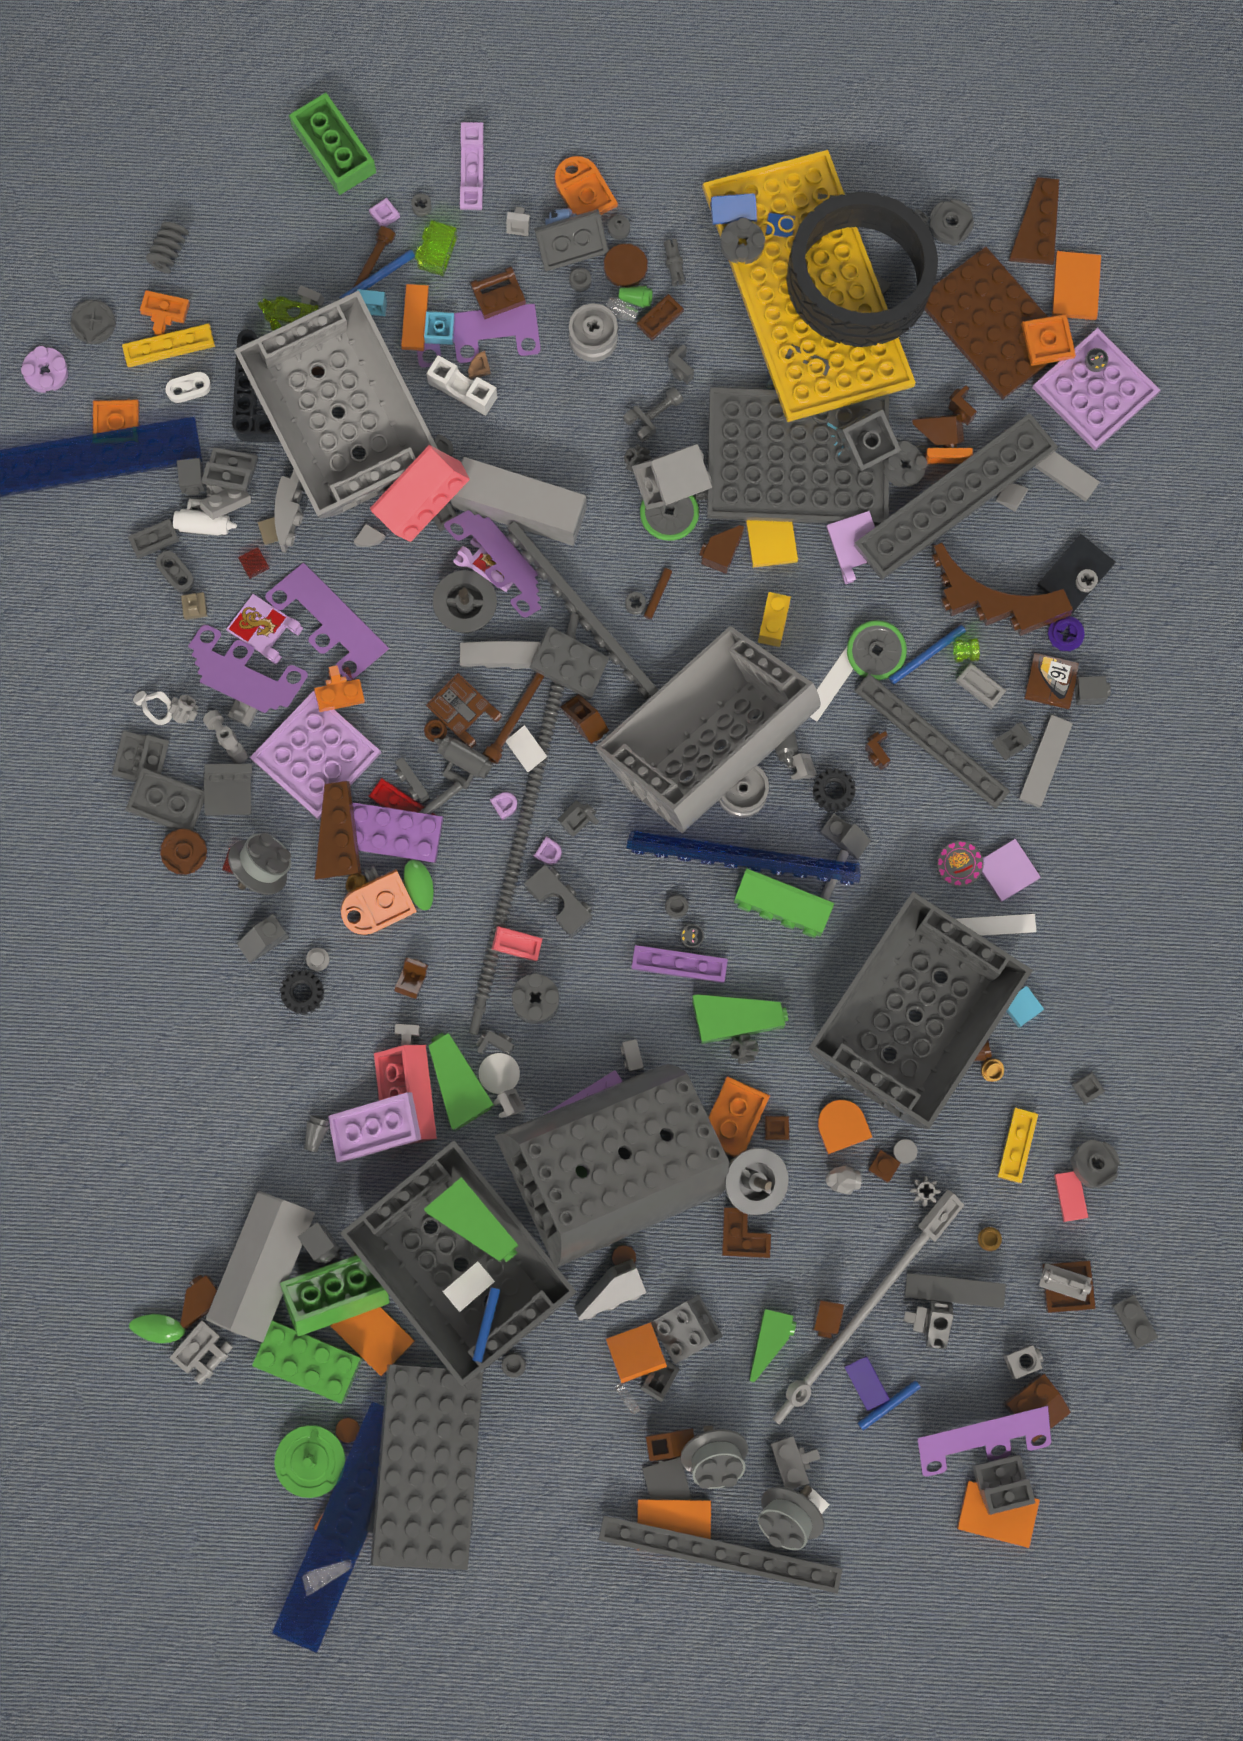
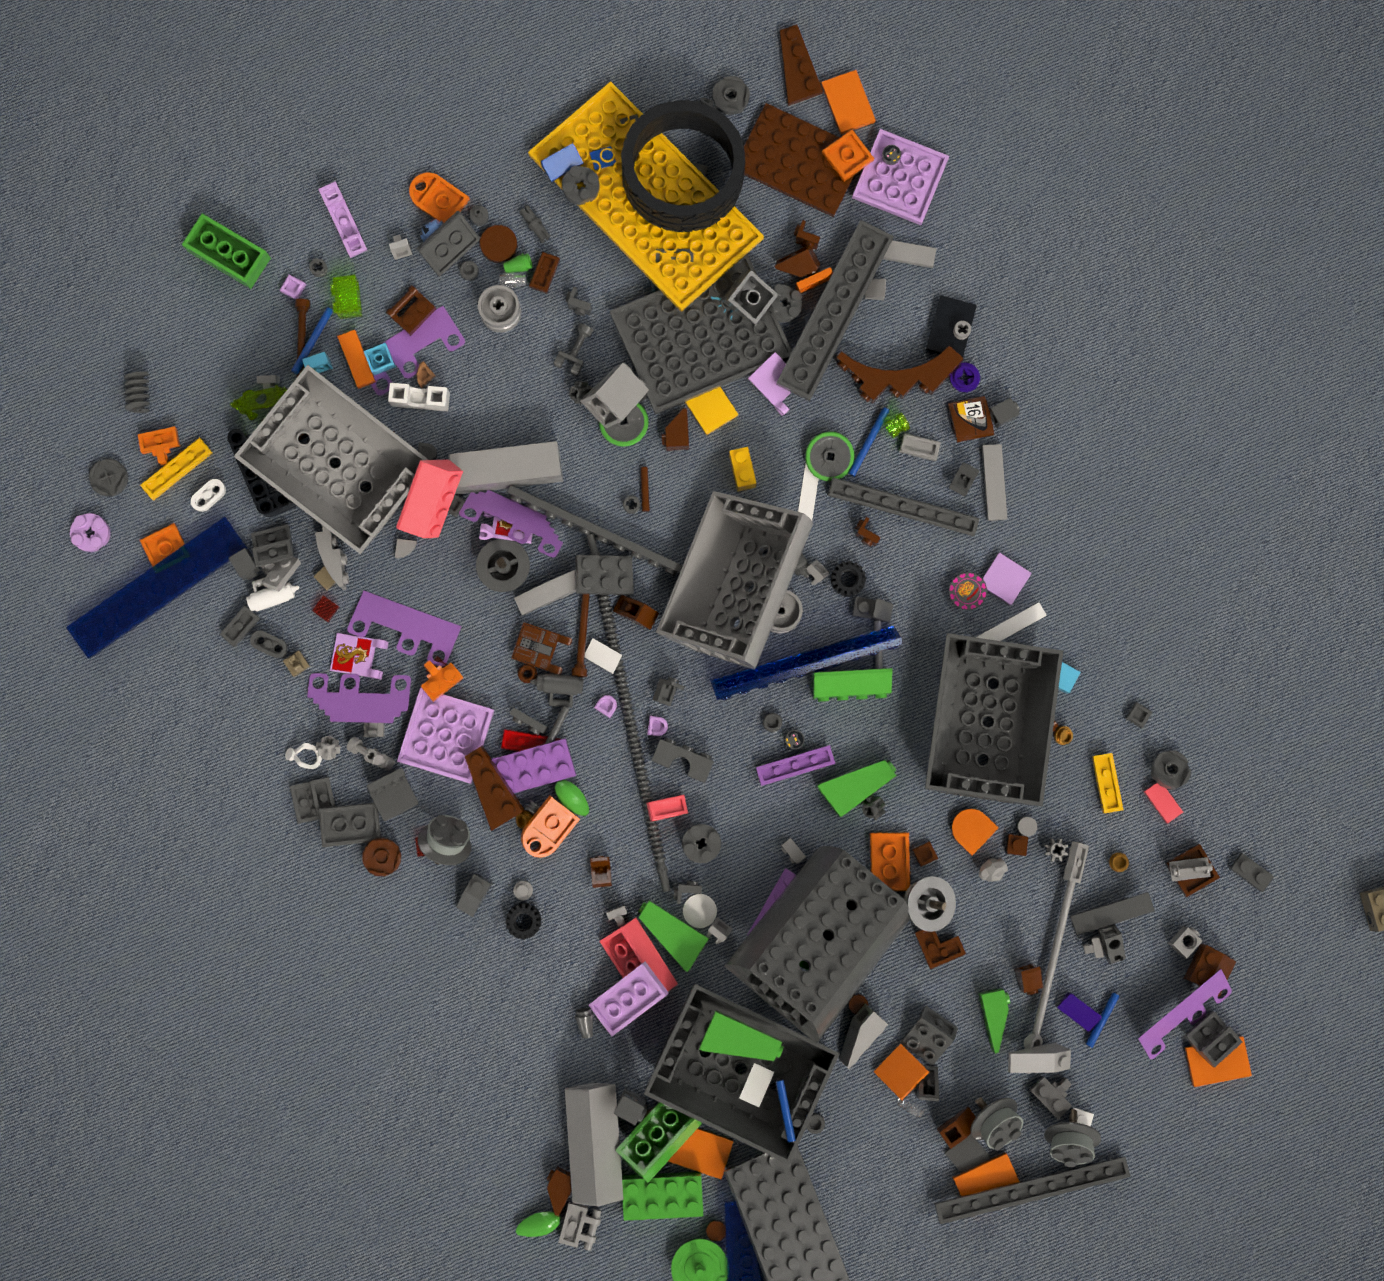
camera: 25 degrees left, 5 degrees up
(796, 1411) = (1040, 1059): none -> light grey slope

